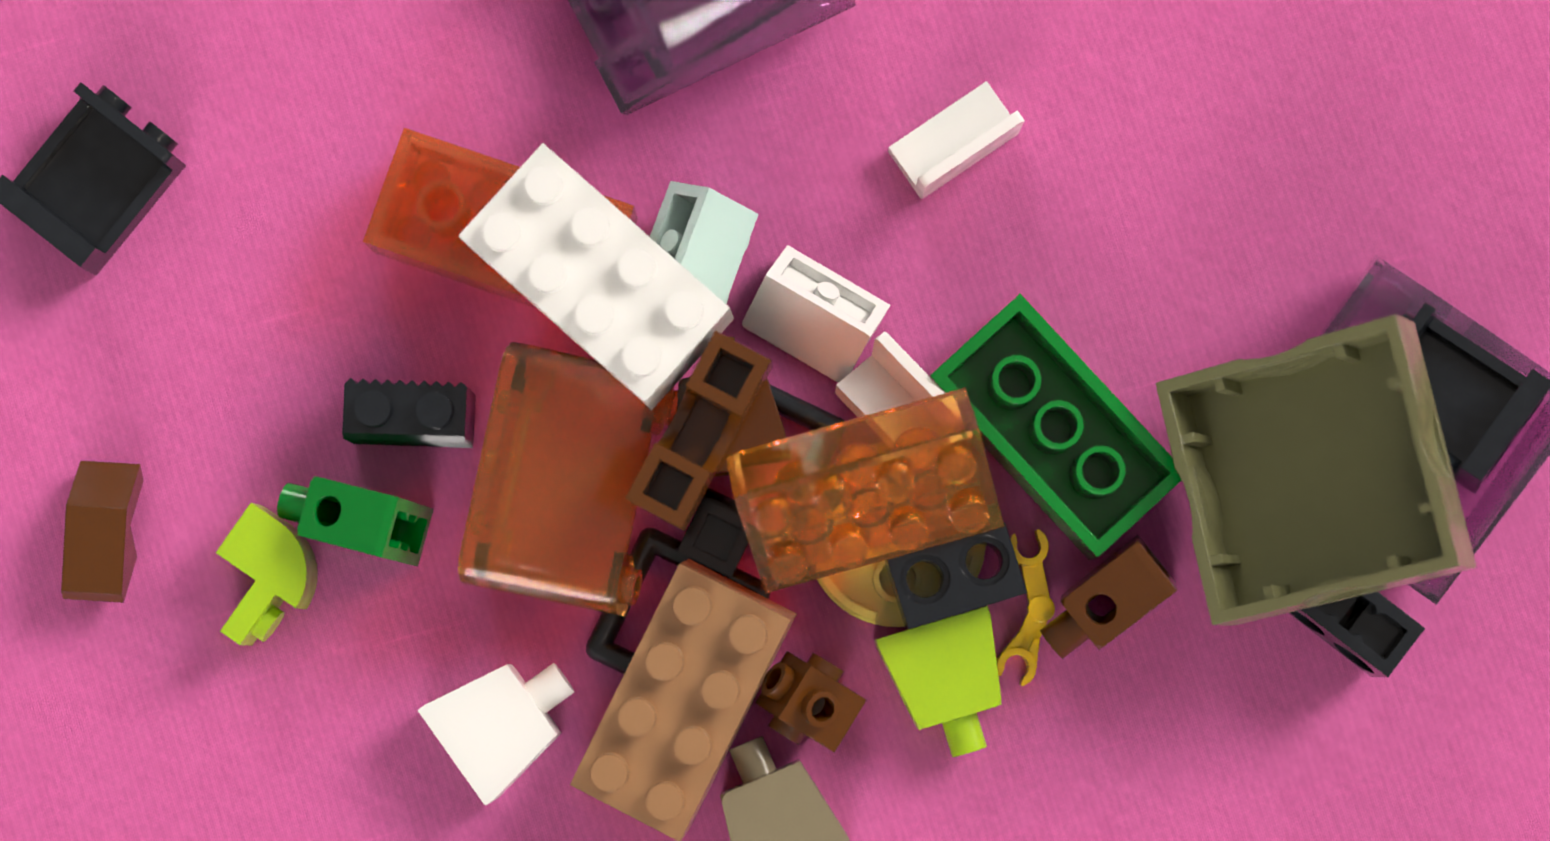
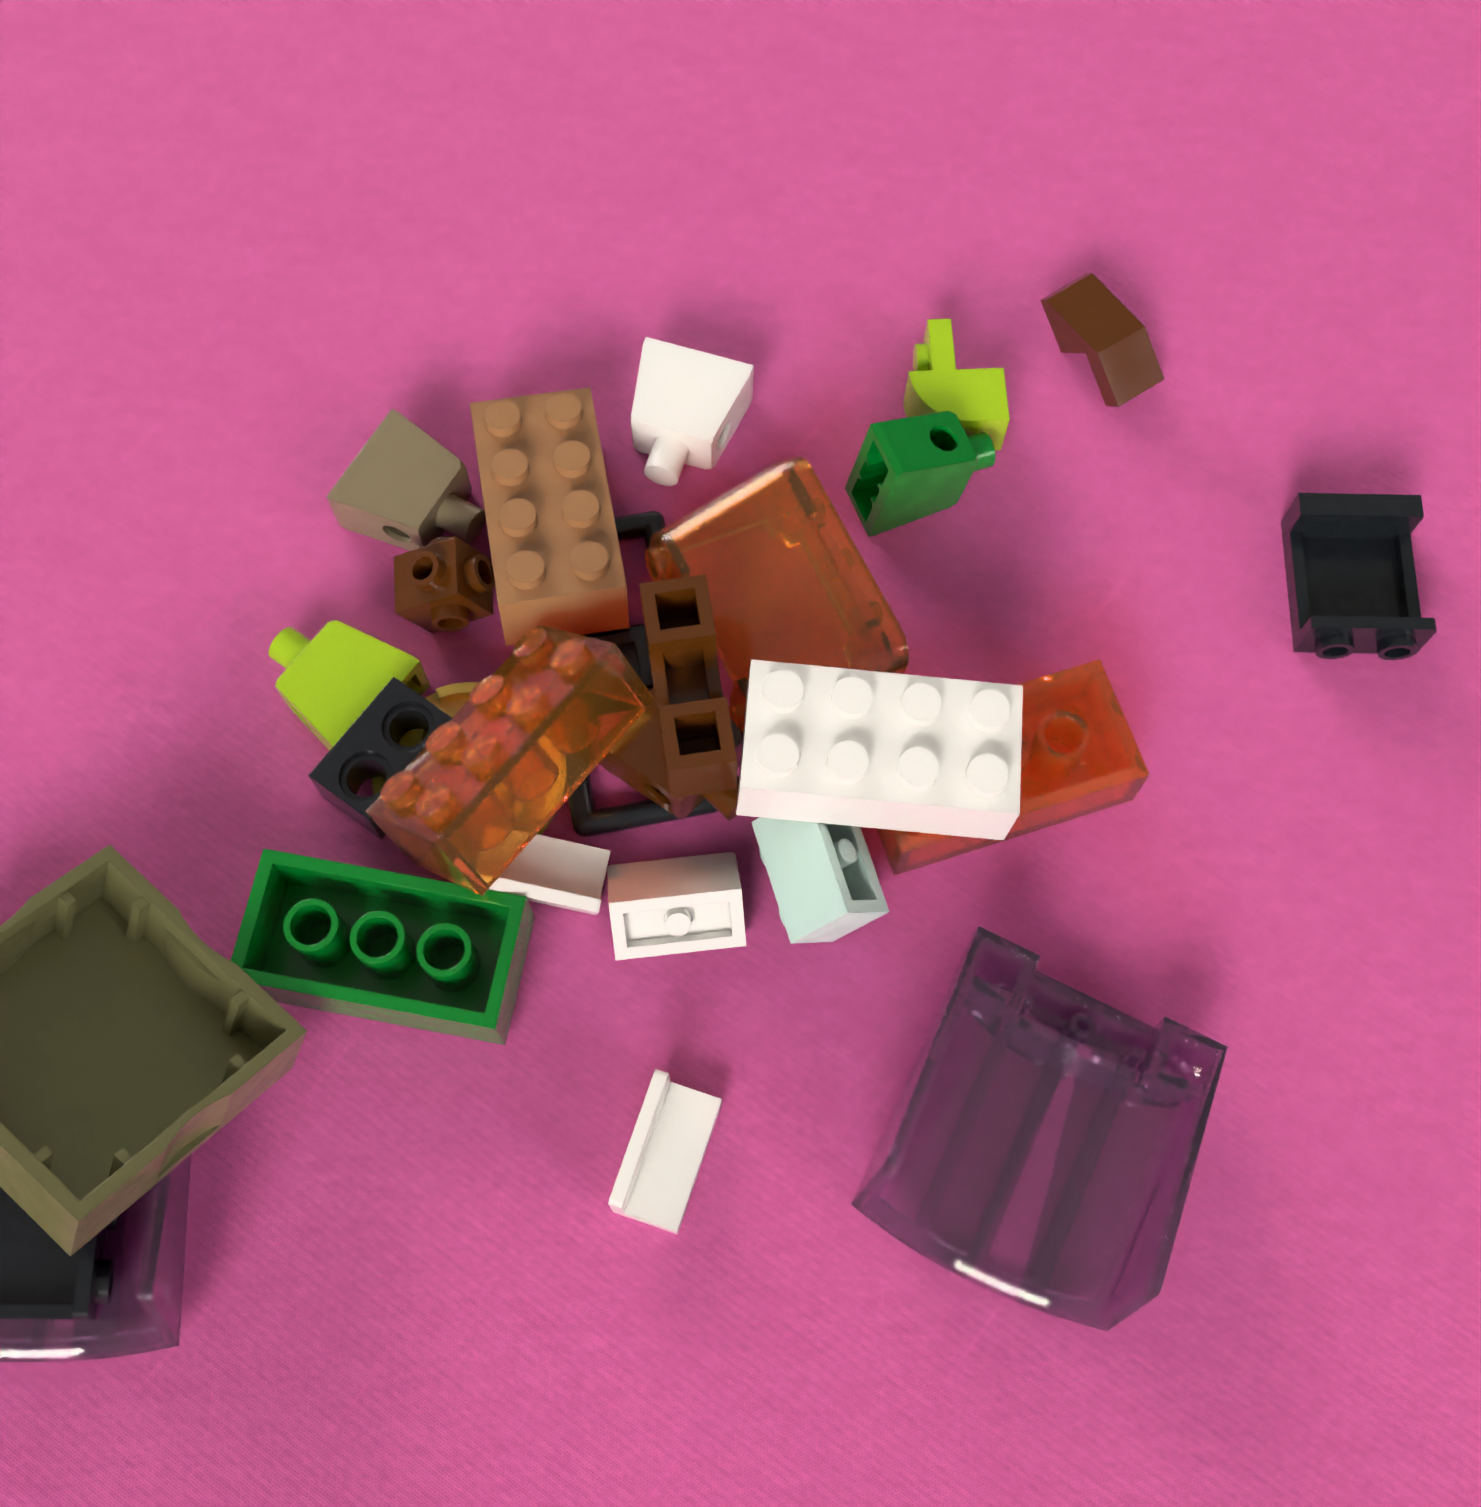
camera: 140 degrees right, 15 degrees down
(408, 414) = (948, 575): black brick -> none
(1039, 610) = (298, 800): yellow piece -> none
(1130, 578) = (224, 840): reddish brown torso -> none

